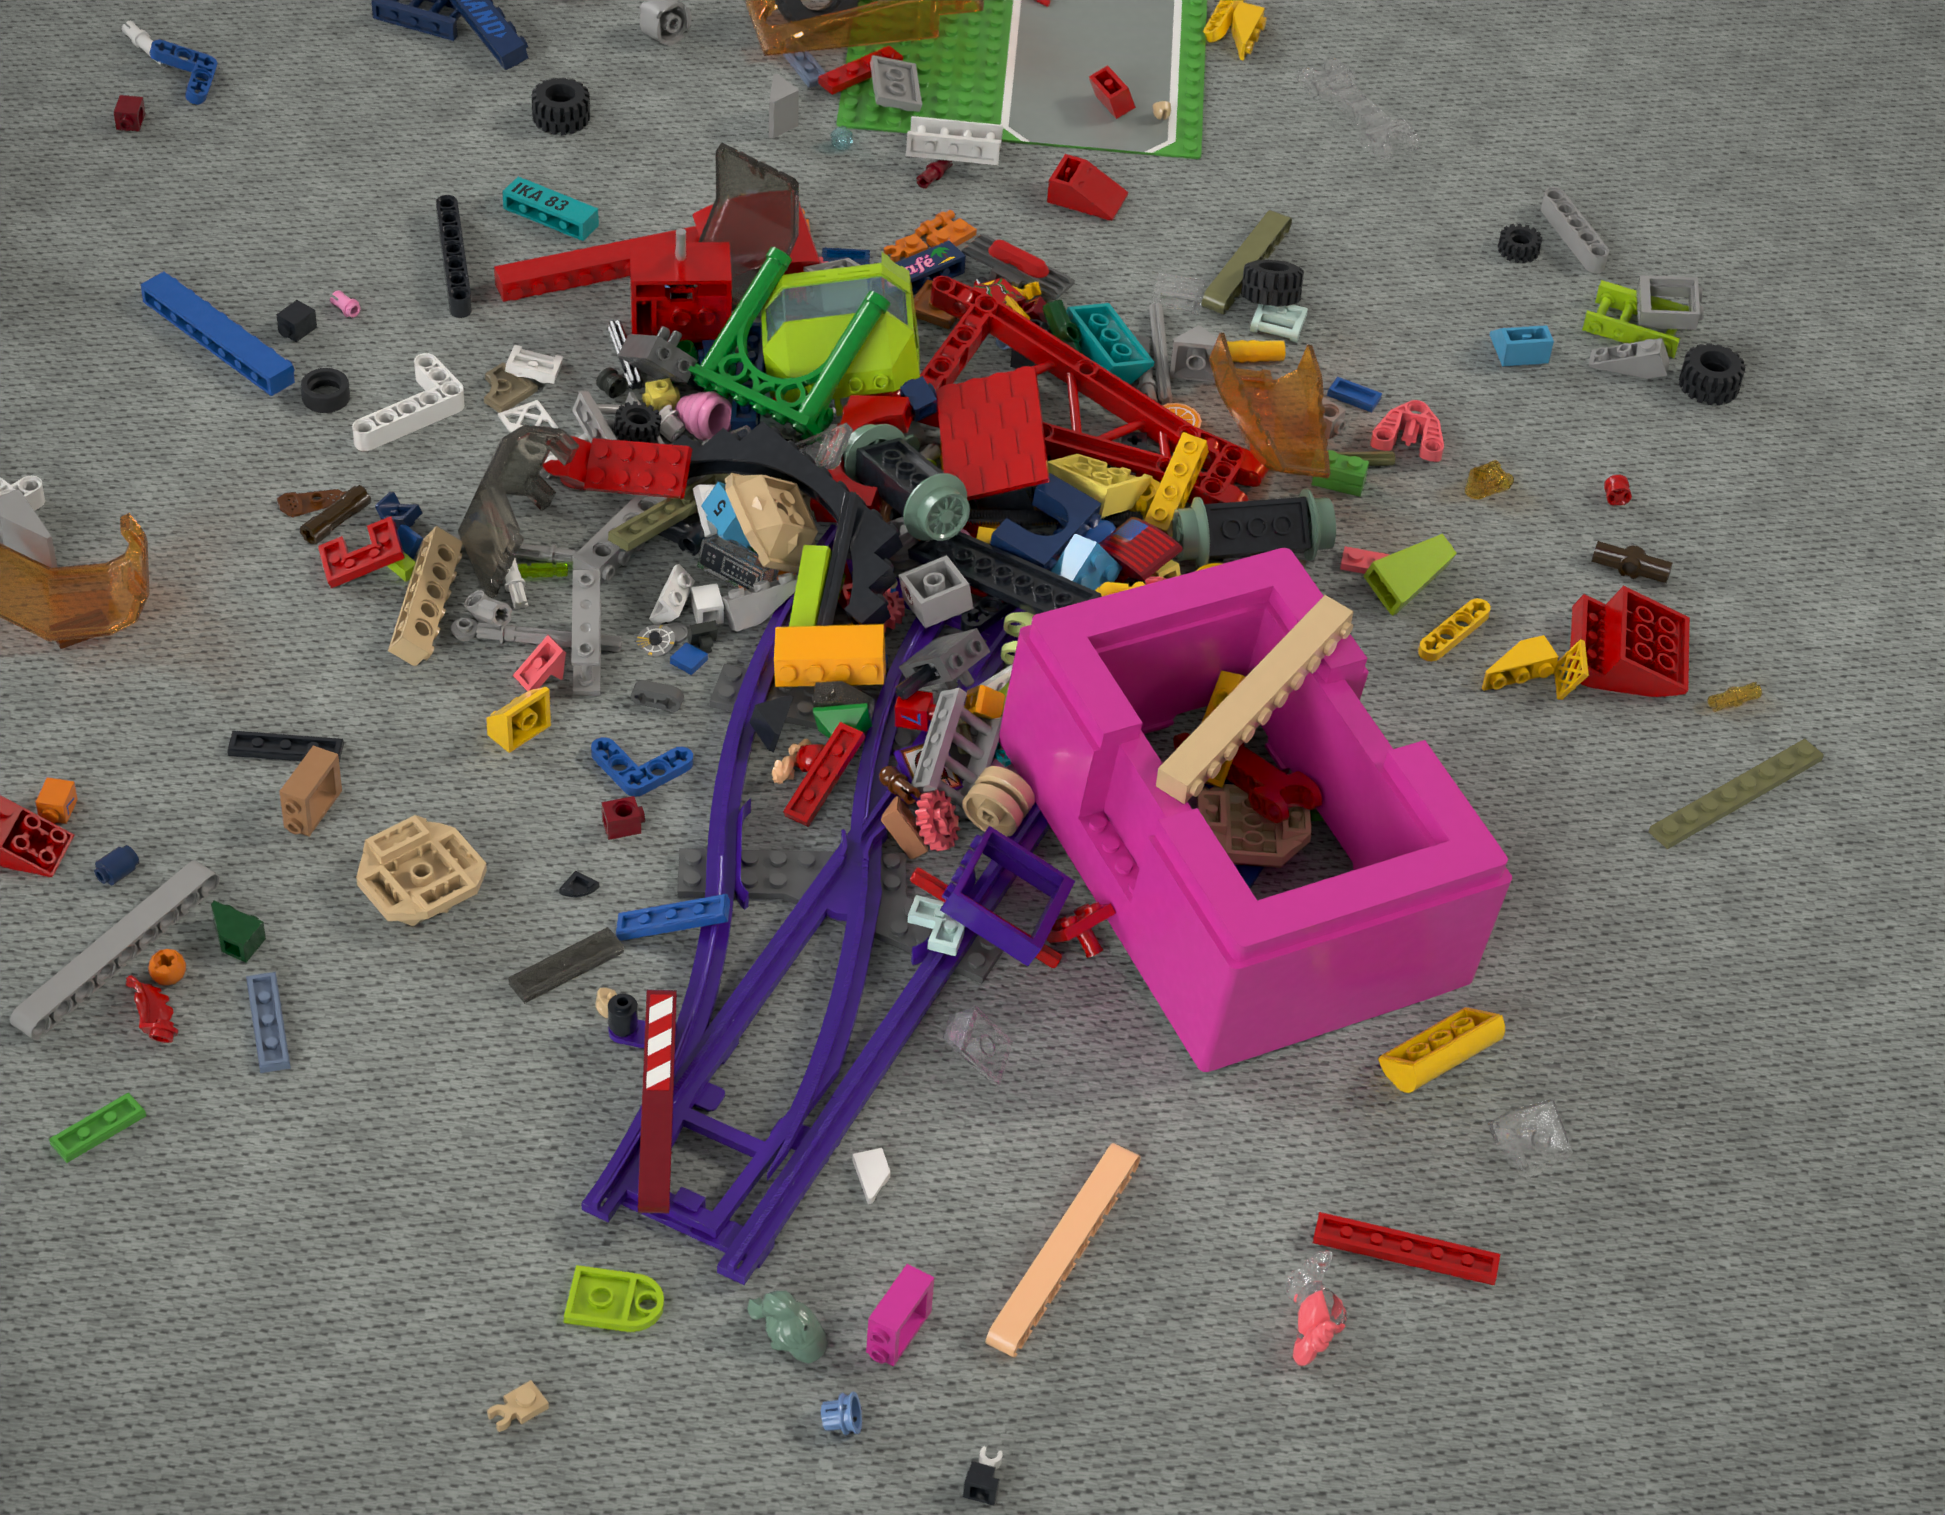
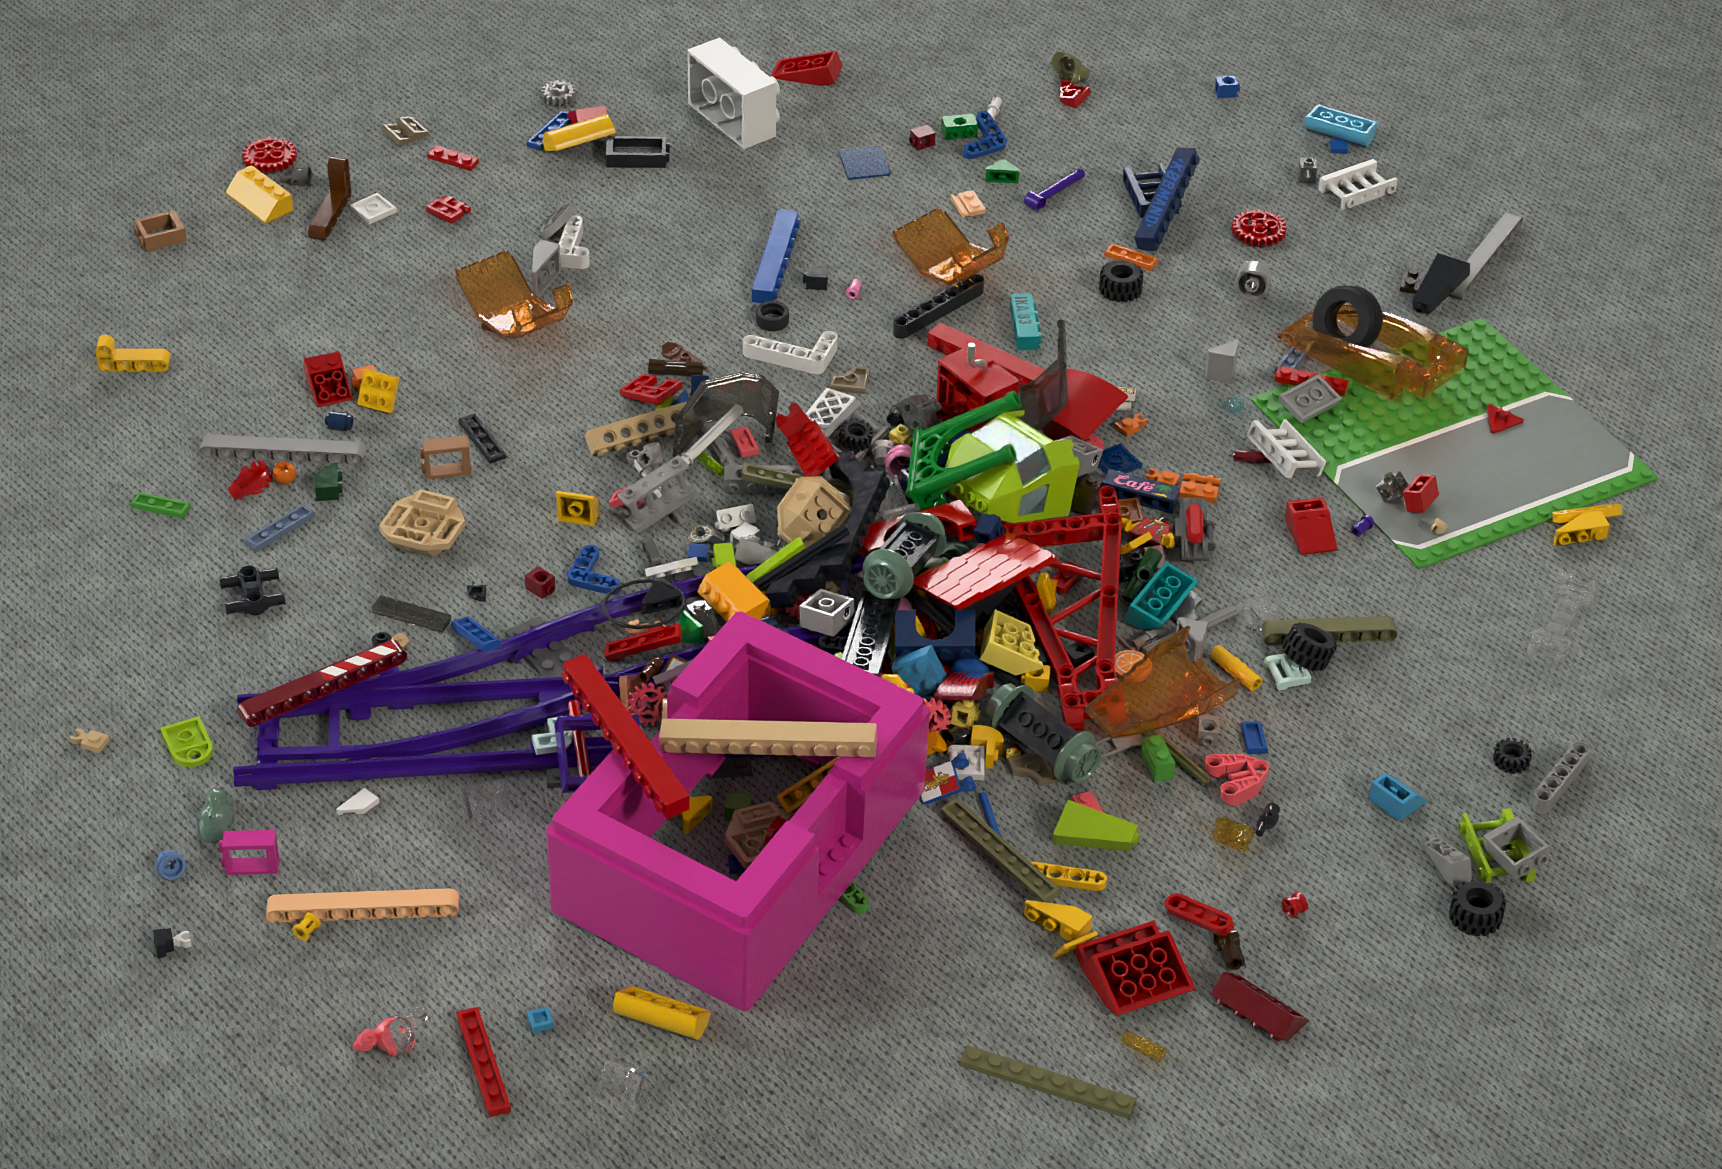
camera: 60 degrees right, 5 degrees down
(106, 796) = (378, 391): none -> yellow plate
(113, 181) = (864, 162): none -> piece
(143, 76) = (959, 126): none -> green brick
(270, 88) = (1002, 172): none -> green slope
(287, 144) = (968, 204): none -> light nougat plate
(343, 90) = (1038, 200): none -> dark purple piece
(377, 1103) = (250, 581): none -> black piece
(379, 203) = (943, 250): none -> clear orange windscreen
(516, 81) = (1121, 253): none -> orange tile
(533, 365) = (874, 381): white plate -> none
(537, 524) = (744, 442): none -> coral plate
(711, 684) = (673, 567): none -> white plate
(738, 637) = (722, 554): none -> lime slope
(775, 778) = (642, 626): none -> black piece
(1060, 1320) = (307, 918): none -> yellow bush
(1082, 104) = (1392, 486): none -> clear smoke brick
(1108, 154) = (1365, 523): none -> dark purple pin
(1168, 810) = (626, 737): none -> red brick
(1177, 481) = (1052, 676): yellow brick -> none
(1288, 484) = (1121, 743): none -> light grey piece
(1374, 1165) = (540, 1019): none -> dark azure plate
(1430, 653) = (1000, 851): none -> olive plate
(1484, 445) = (1267, 819): none -> black piece
(1593, 558) = (1199, 914): none -> red plate
(1741, 588) = (1258, 1006): none -> dark red slope

